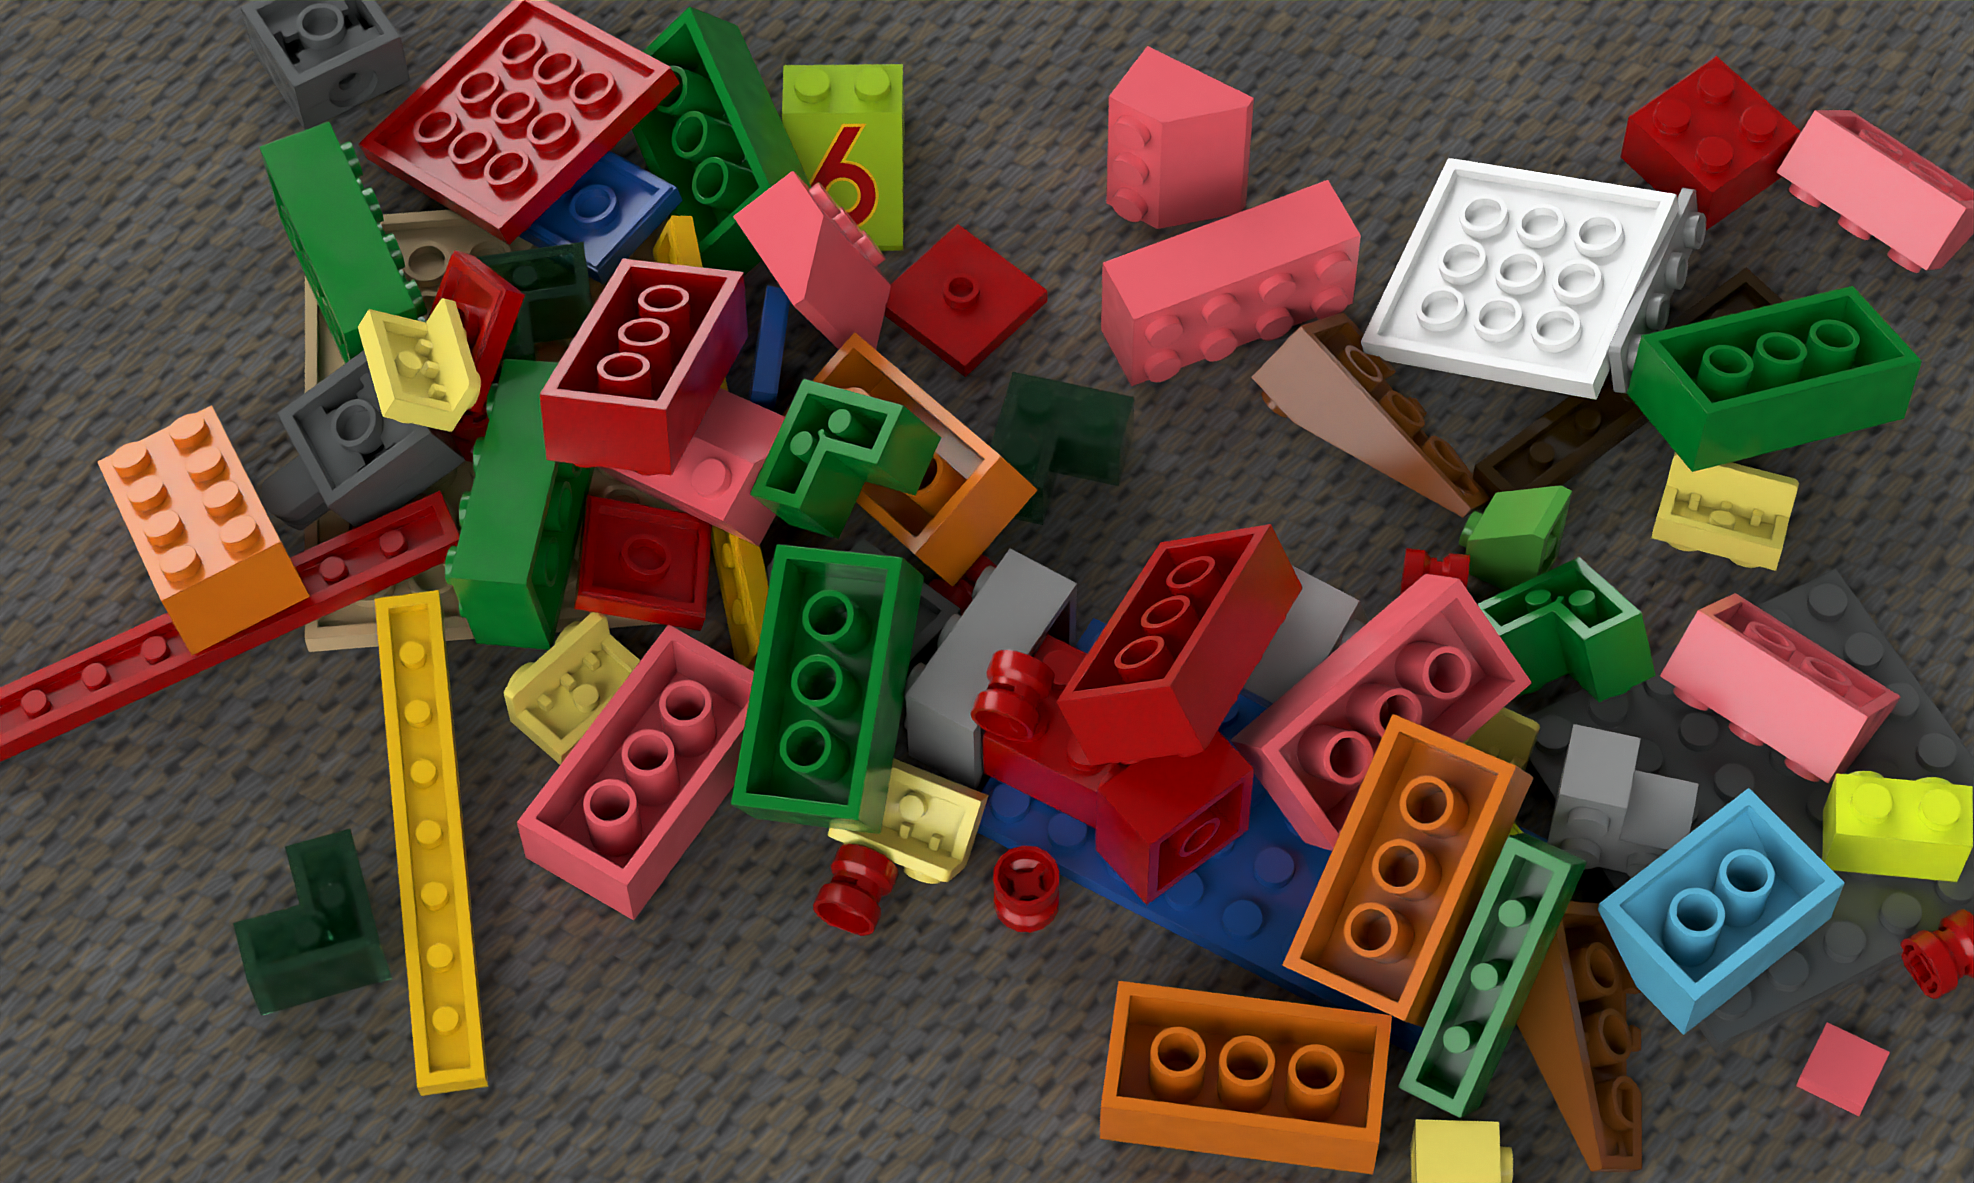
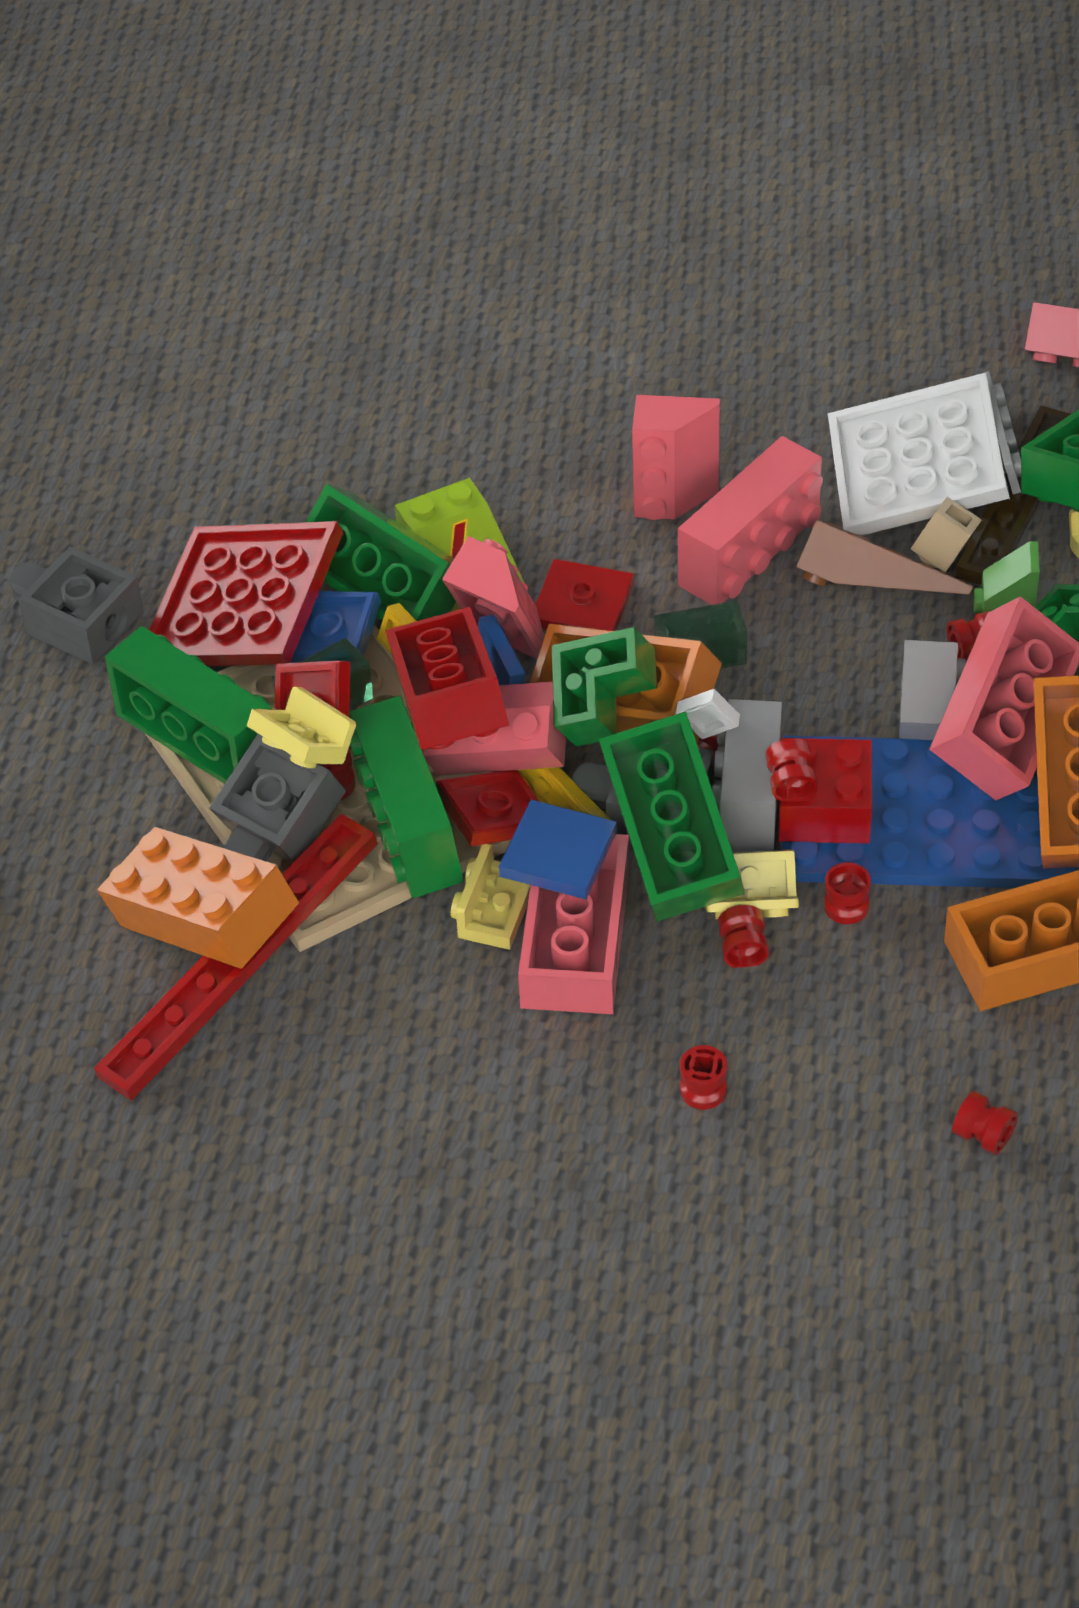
camera: 25 degrees left, 10 degrees down
(323, 942) = (428, 1094): clear green brick -> none
(430, 845) = (461, 1019): yellow plate -> none
(668, 667) = (558, 849): none -> blue tile
(683, 1083) = (703, 1077): none -> red wheel
(959, 562) = (709, 713): none -> white tile
(1171, 814) = (917, 800): red brick -> none
(1180, 646) = (880, 699): red brick -> none
(1483, 414) = (945, 535): none -> tan brick
(1709, 138) = (973, 342): red brick -> none

